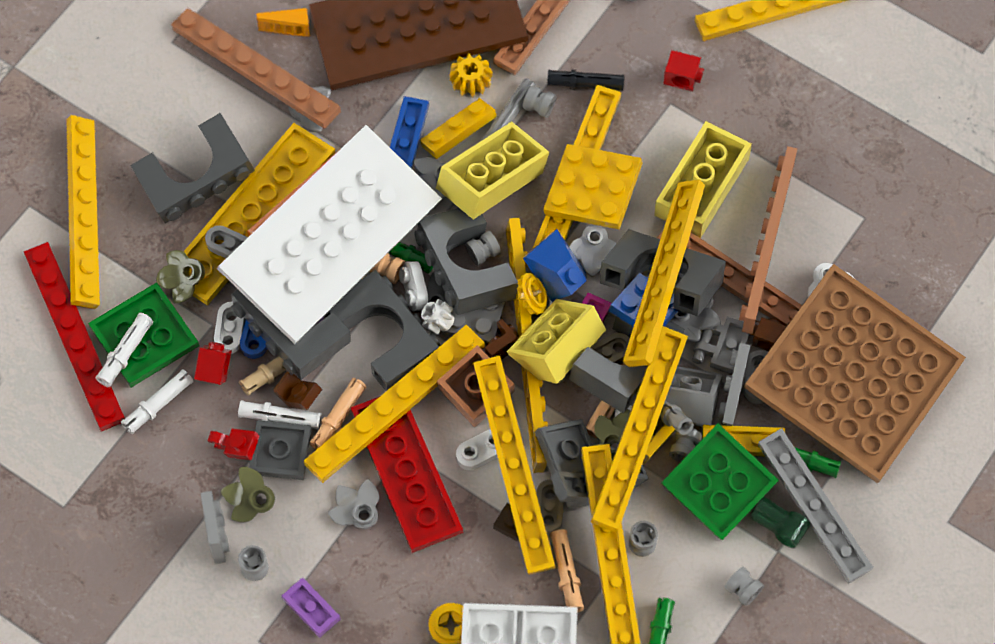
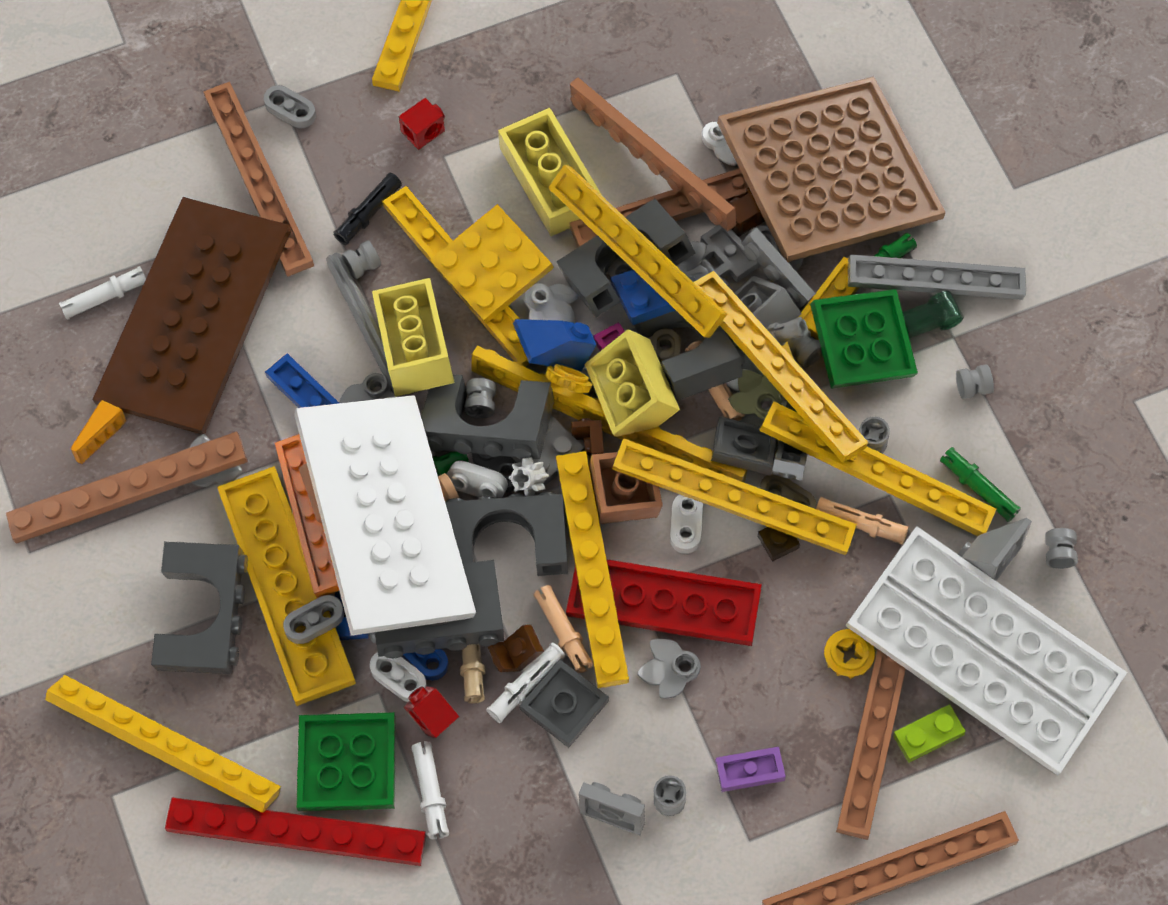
camera: 55 degrees left, 0 degrees up
(118, 358) = (373, 815): white pin -> none
(177, 277) = (311, 691): olive plate -> none
(238, 445) = (533, 737): red plate -> none
(245, 493) = (588, 763): olive plate -> none
(458, 128) = (334, 346): yellow plate -> none
(470, 75) = (297, 304): yellow gear -> none

